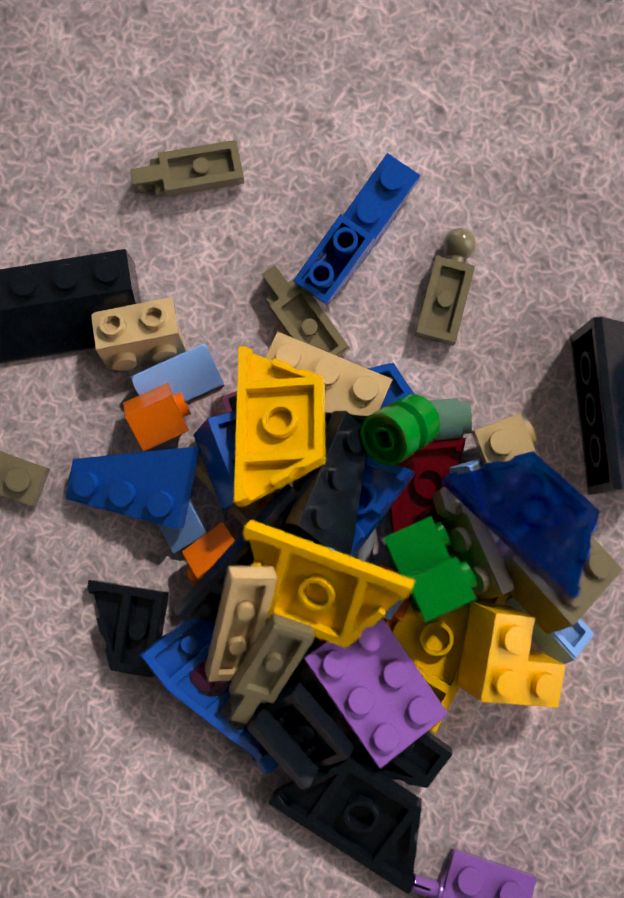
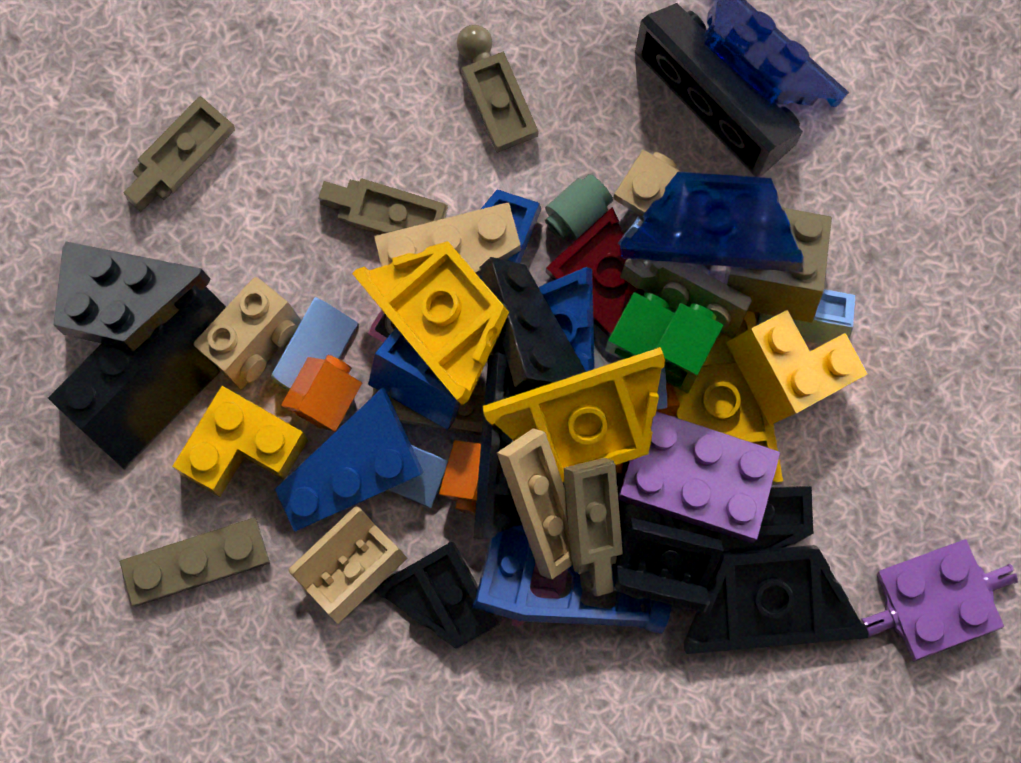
camera: 40 degrees left, 5 degrees down
(64, 239) = (118, 295): none -> wing
(71, 397) = (235, 431): none -> yellow brick
(81, 552) = (347, 564): none -> tan bracket
(357, 230) = (374, 95): blue slope -> none
(400, 429) = (550, 238): green wheel -> none

